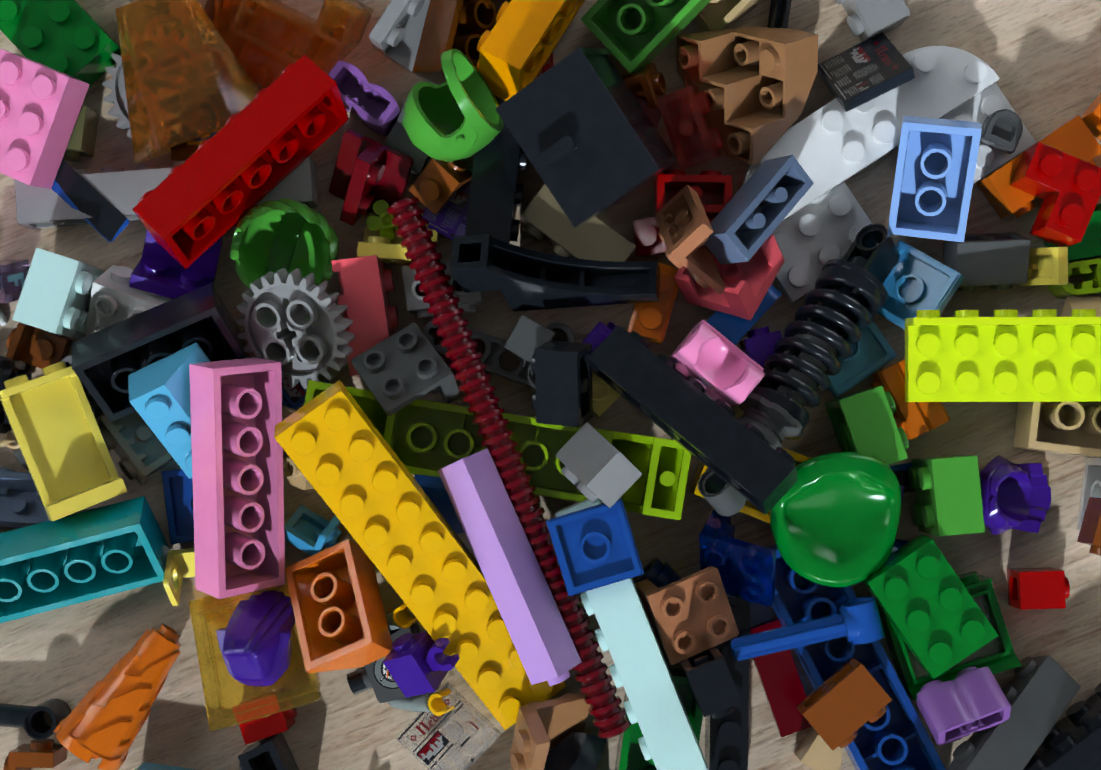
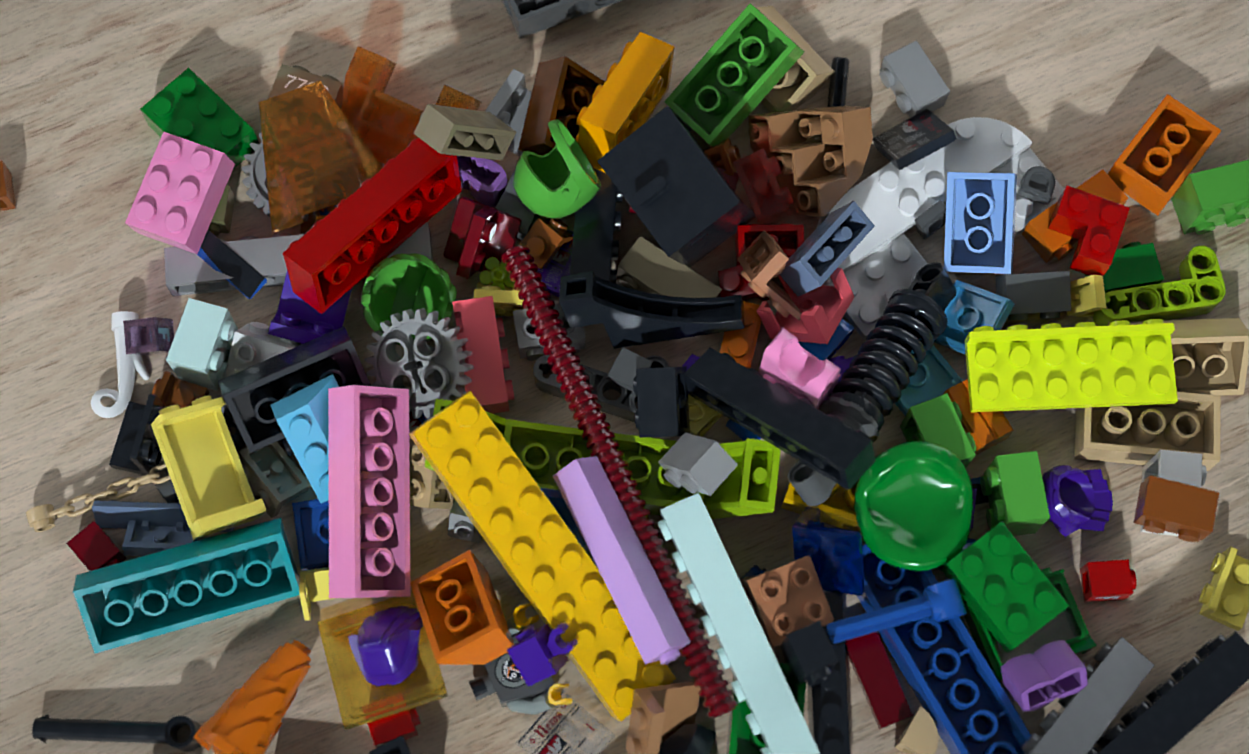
camera: 10 degrees left, 15 degrees down
(311, 532) = (431, 551): dark azure bracket -> none
(345, 60) = (464, 132): none -> dark tan brick
(405, 370) = (521, 393): dark grey bracket -> none
(595, 547) = (698, 535): blue tile -> none
(844, 704) = (934, 677): dark orange brick -> none
(878, 168) = (931, 220): none -> dark grey tile

